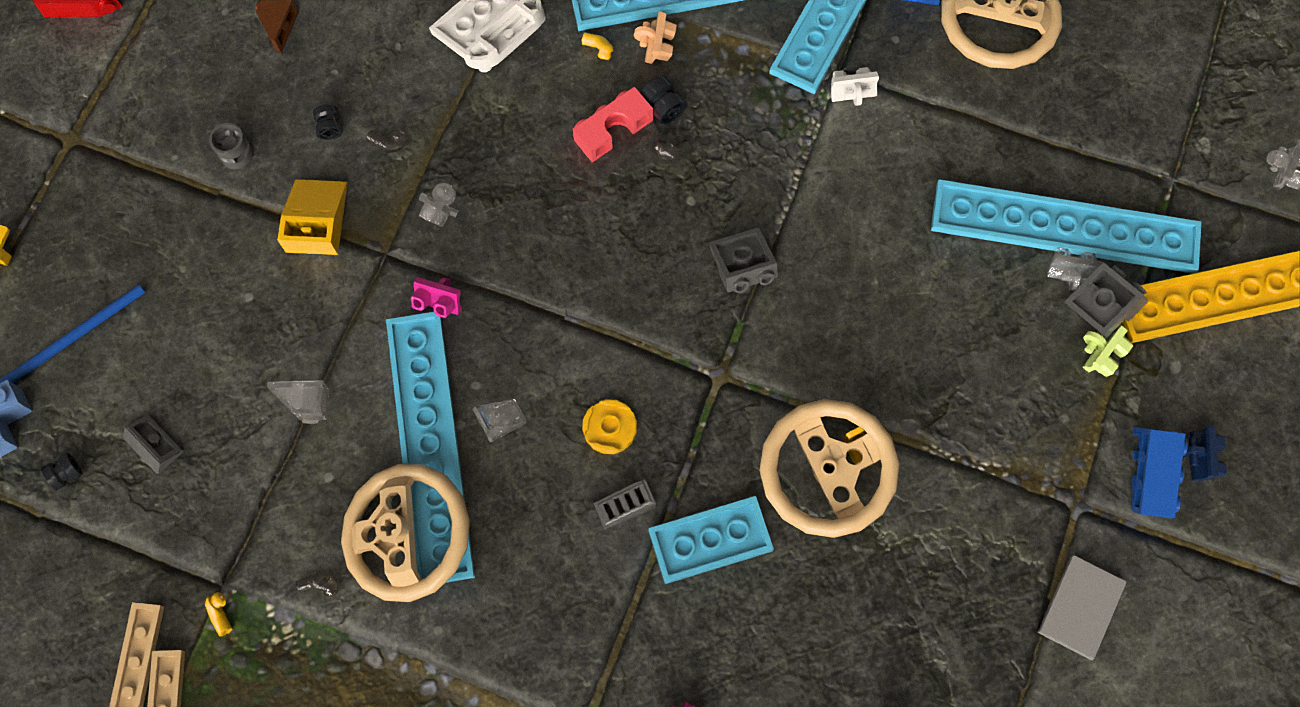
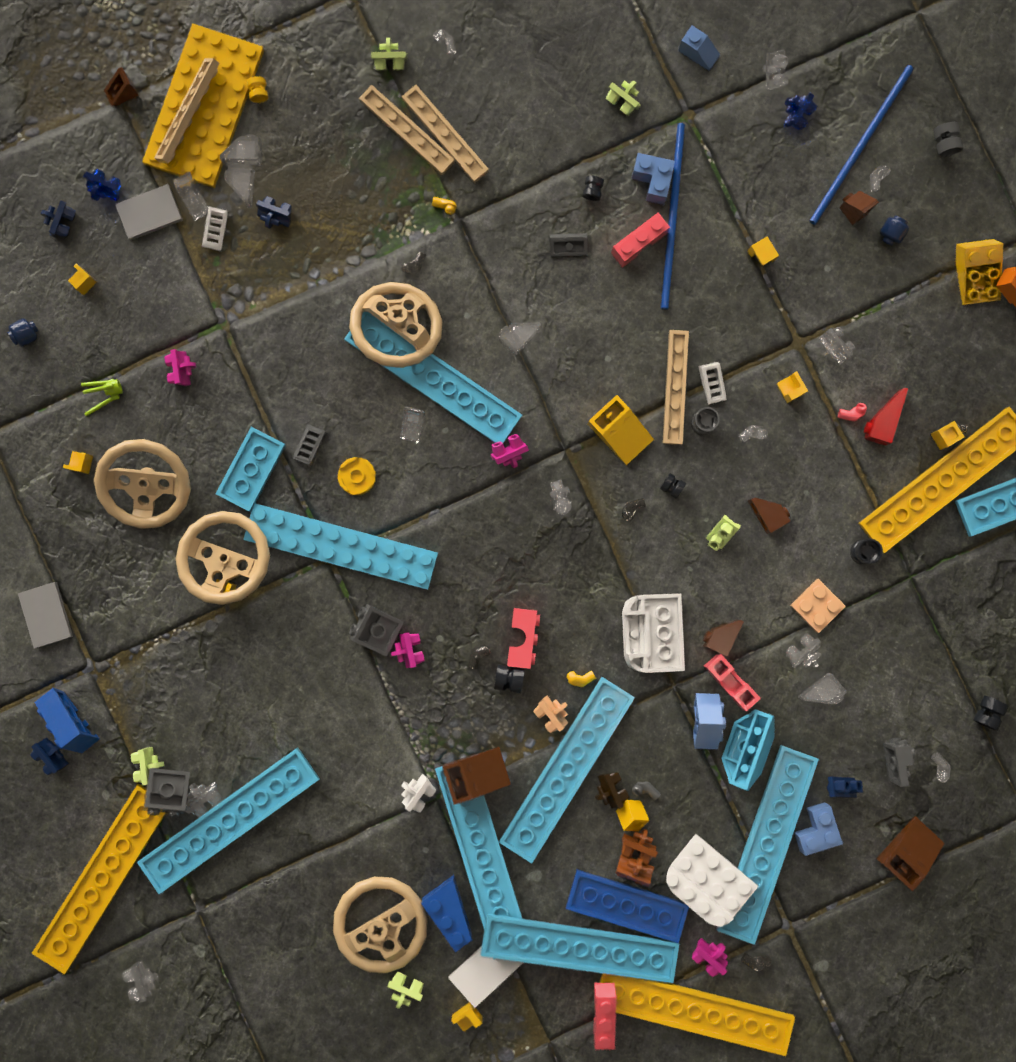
camera: 135 degrees right, 15 degrees up
(42, 99) = (835, 345): none -> clear hips
(69, 367) = (636, 241): none -> coral arch
(103, 31) = (854, 414): none -> coral arm
(123, 102) = (792, 387): none -> yellow panel
(176, 192) = (719, 380): none -> white slope
(203, 101) = (753, 431): none -> clear arm
(219, 205) = (675, 387): none -> tan plate
(331, 39) = (722, 533): none -> yellowish green hips
(695, 372) = (344, 546): none -> medium azure plate
(734, 215) = (410, 658): none -> dark pink hips
(784, 43) = (476, 775): none -> reddish brown slope
(838, 635) = (142, 483): none -> tan piece

